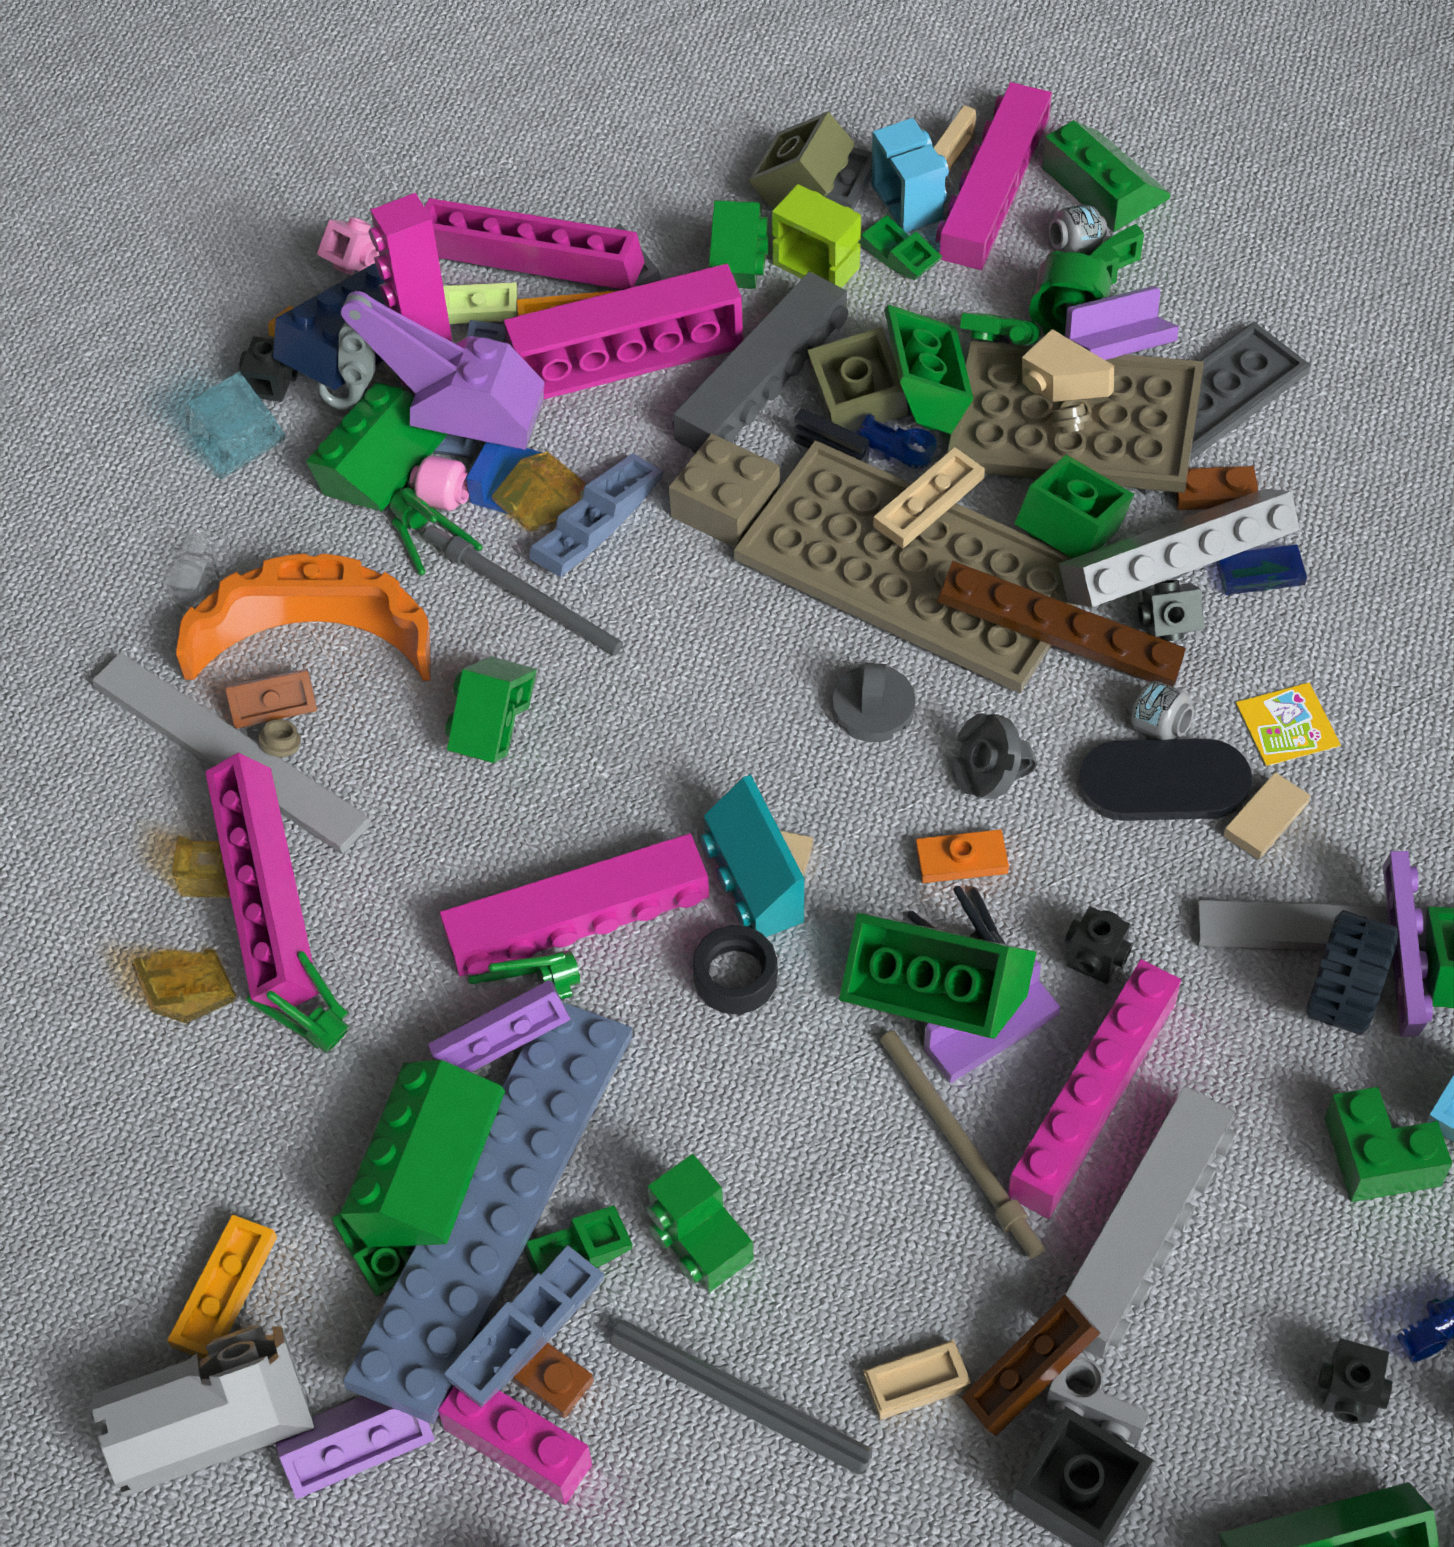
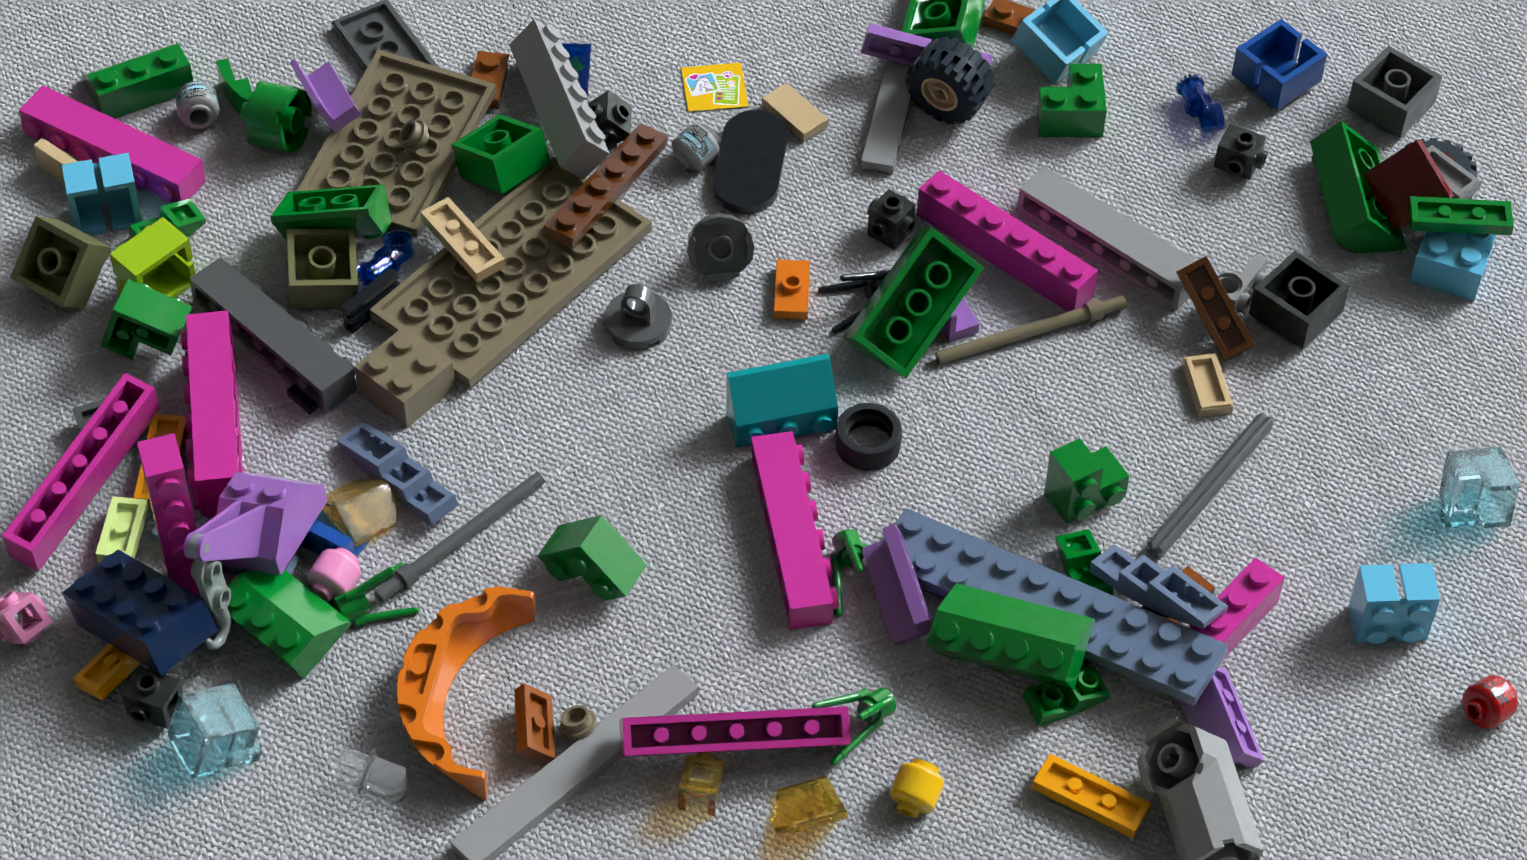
camera: 85 degrees left, 5 degrees down
(215, 1088) = (916, 788): none -> yellow head
(991, 327) = (295, 167): green plate -> none
(1066, 370) = (363, 129): tan slope -> none

